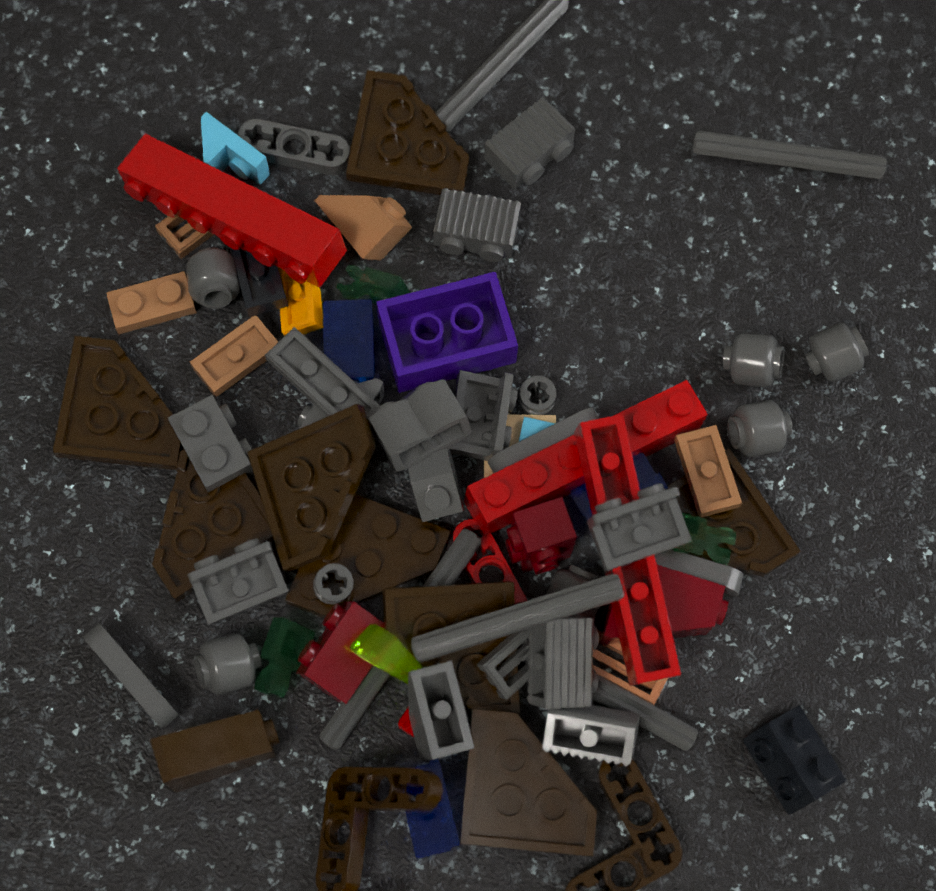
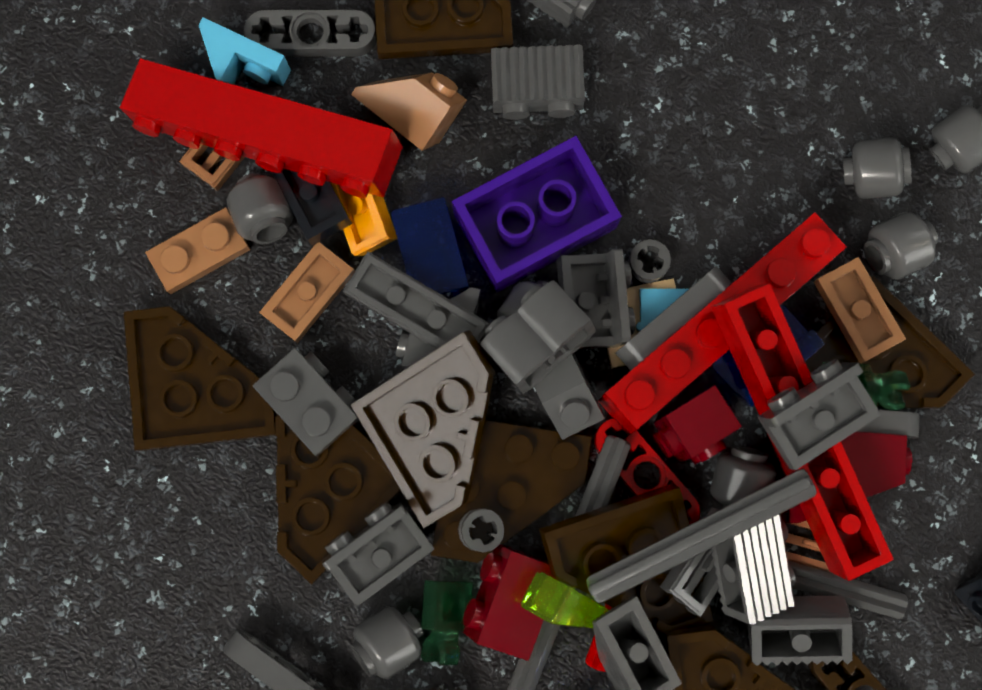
camera: 10 degrees left, 10 degrees up
(374, 282) = (450, 178): clear green plate -> none

